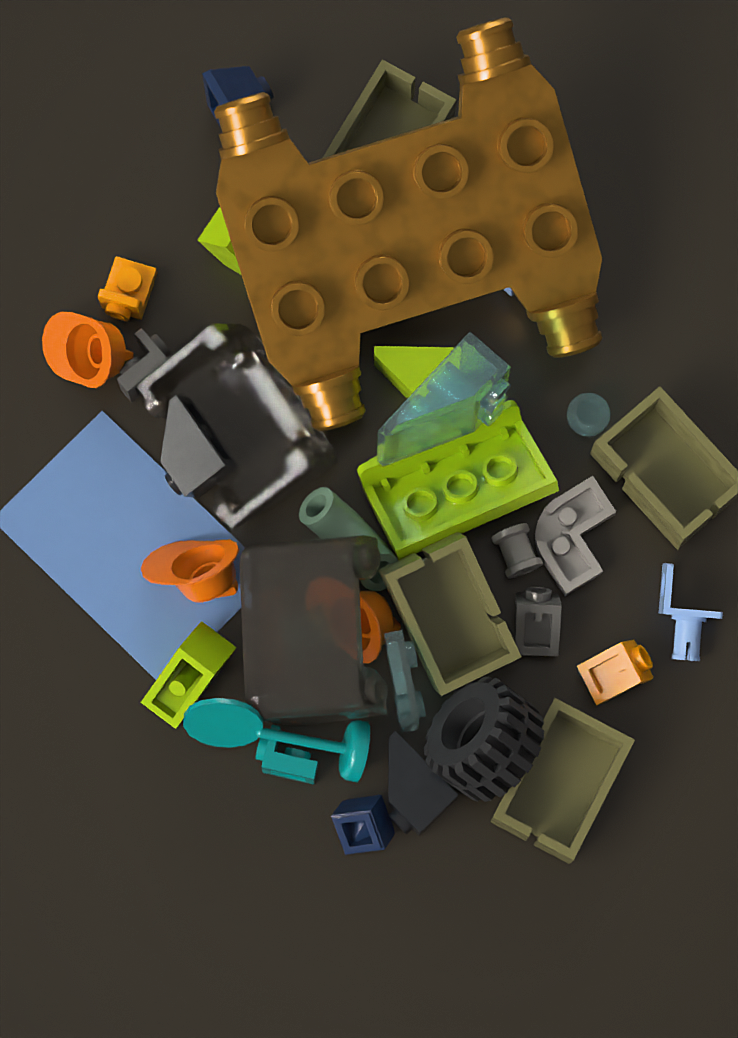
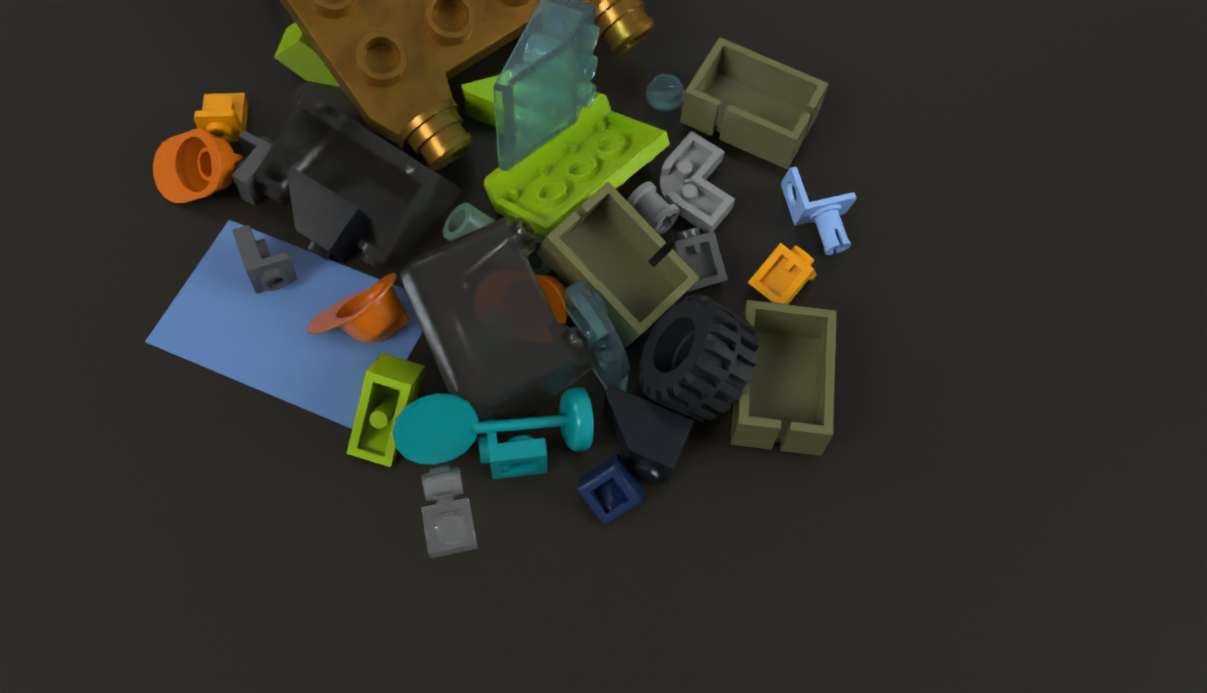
camera: 25 degrees left, 15 degrees down
(115, 472) = (263, 270): none -> dark grey bracket
(208, 804) = (450, 521): none -> clear plate

